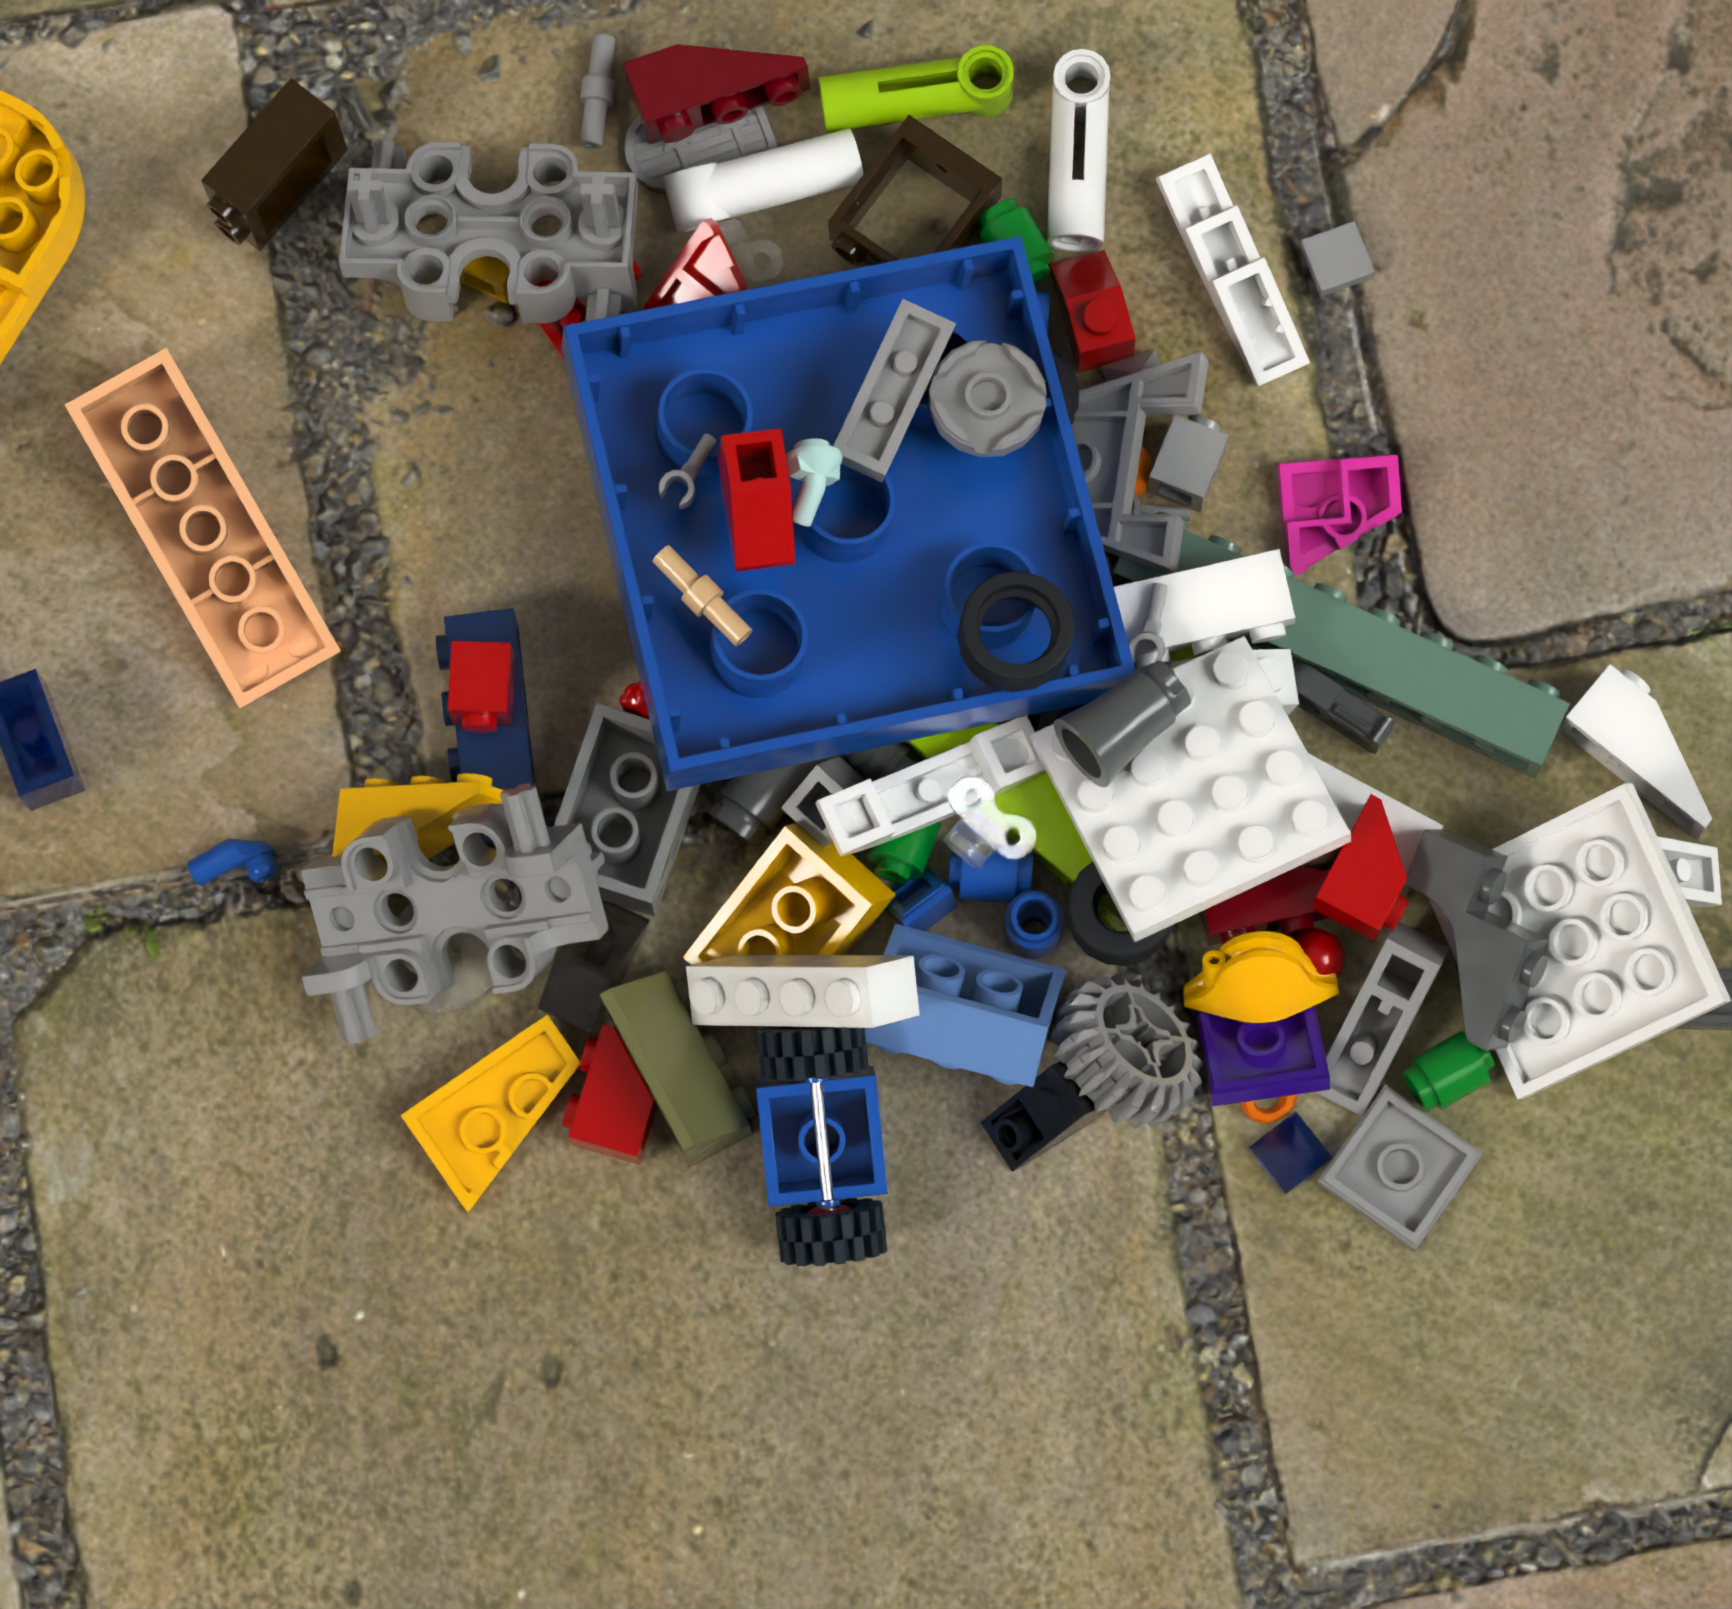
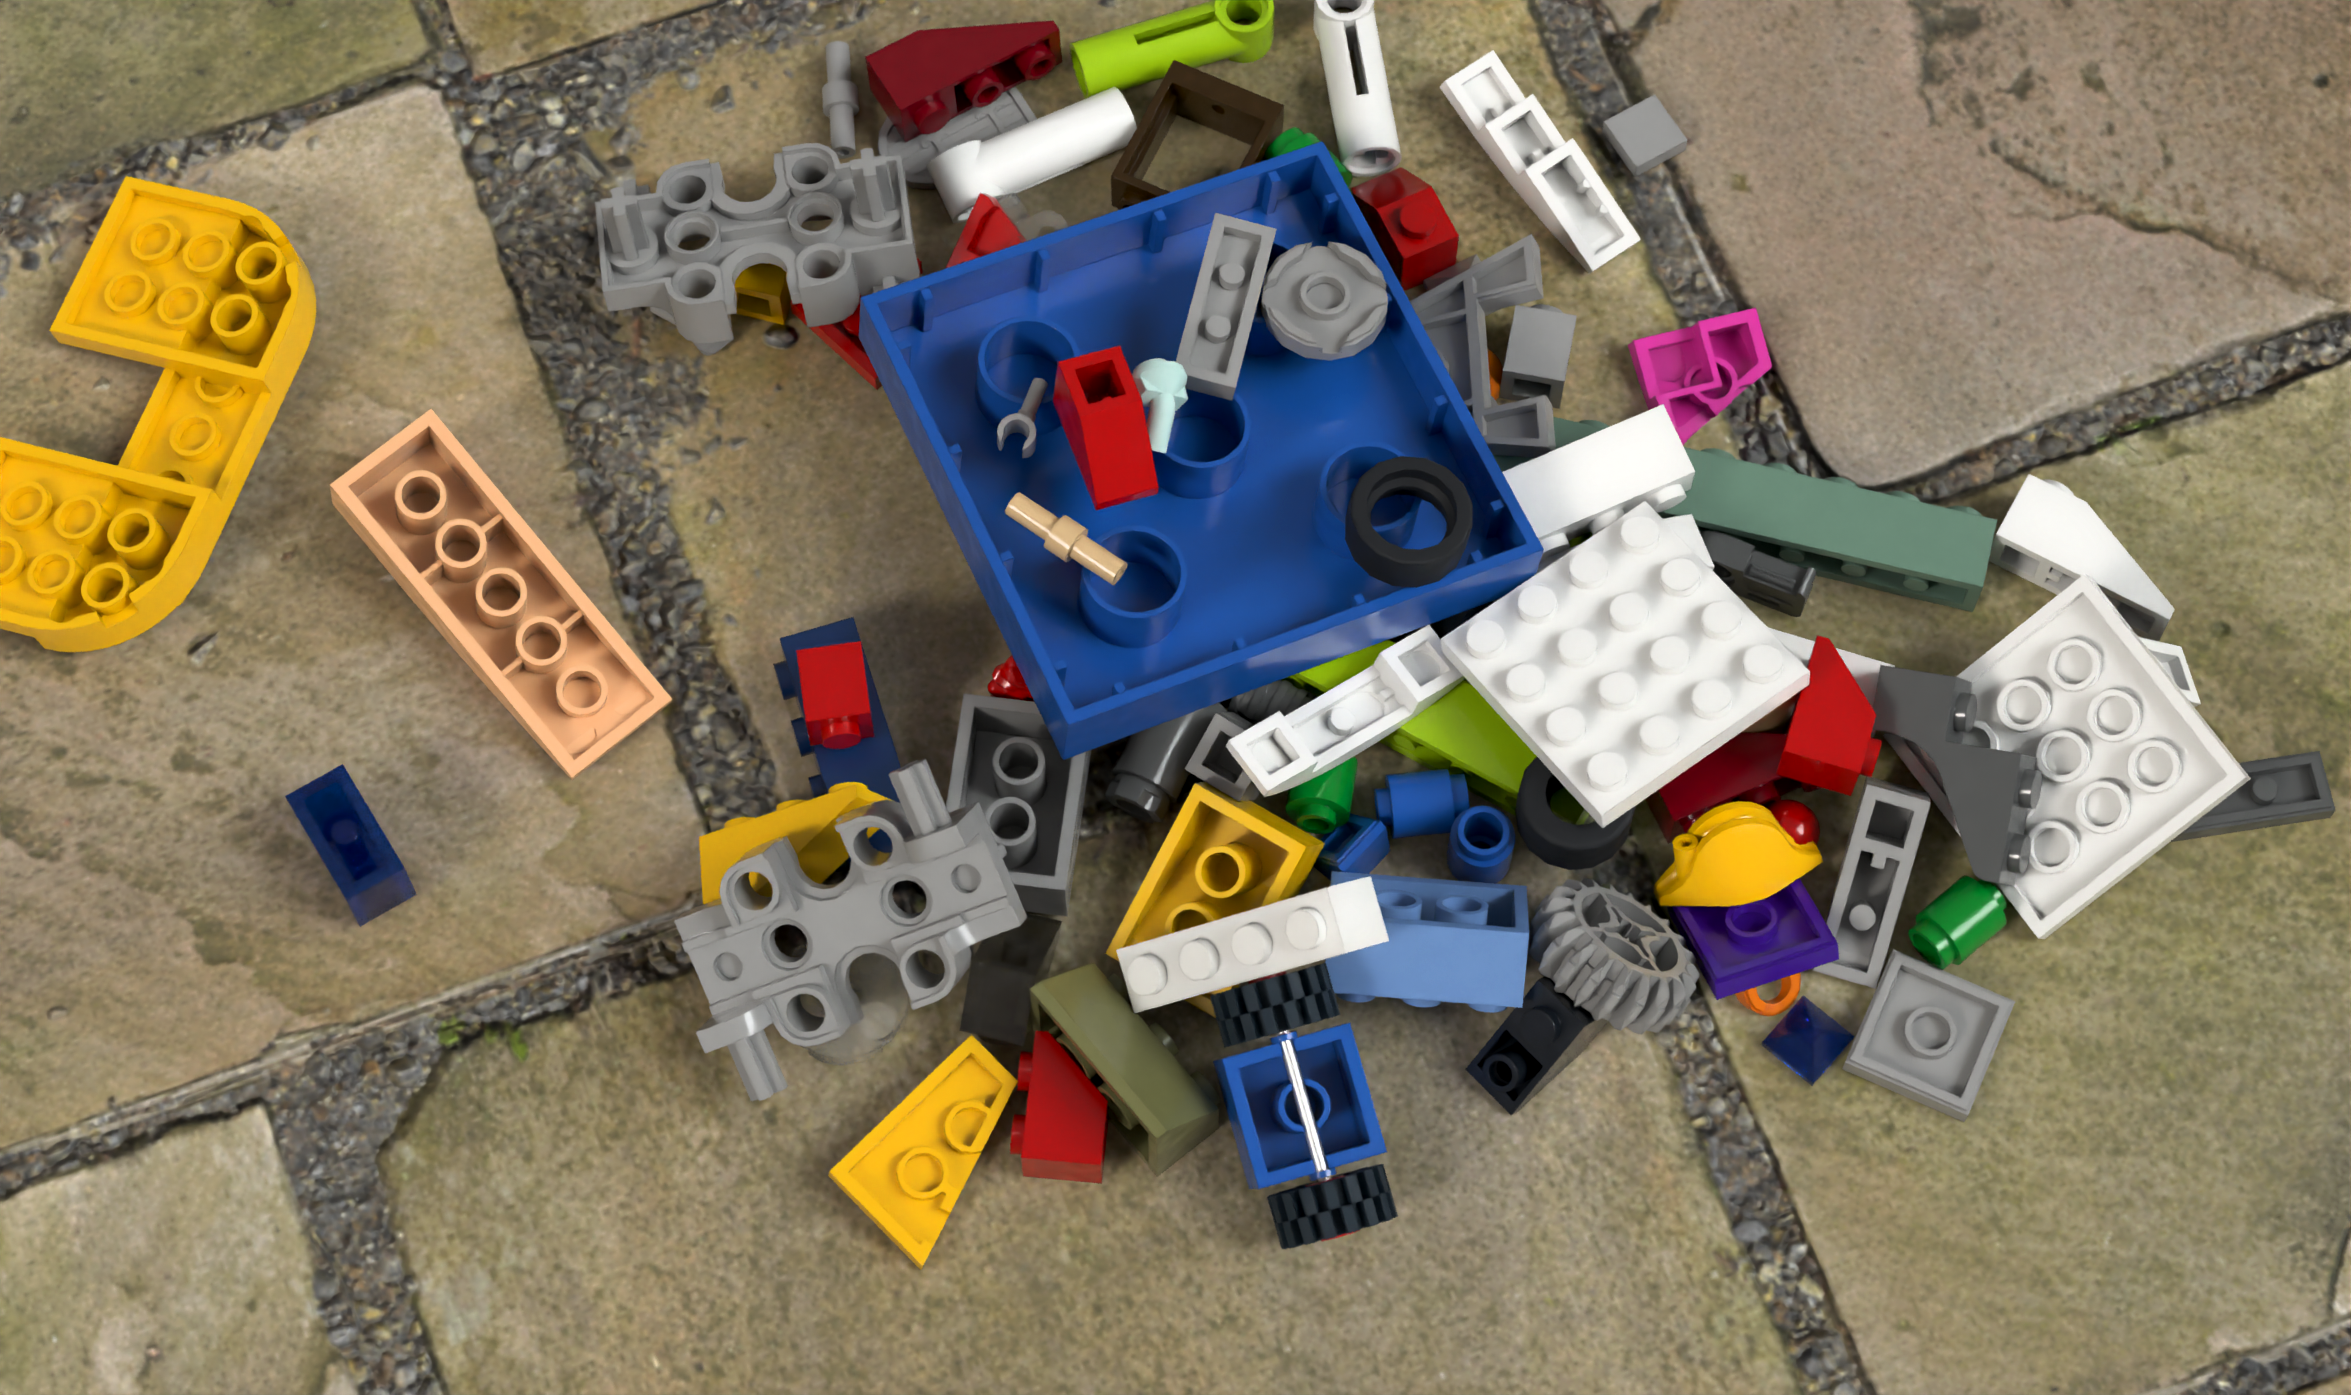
camera: 15 degrees left, 10 degrees down
(234, 854) = (595, 930): blue arm -> none
(274, 166) = (513, 218): dark brown window -> none
(984, 826) = (1408, 747): clear piece -> none
(1121, 721) = (1539, 599): dark grey plant -> none
(1152, 624) = (1546, 503): light grey hand -> none

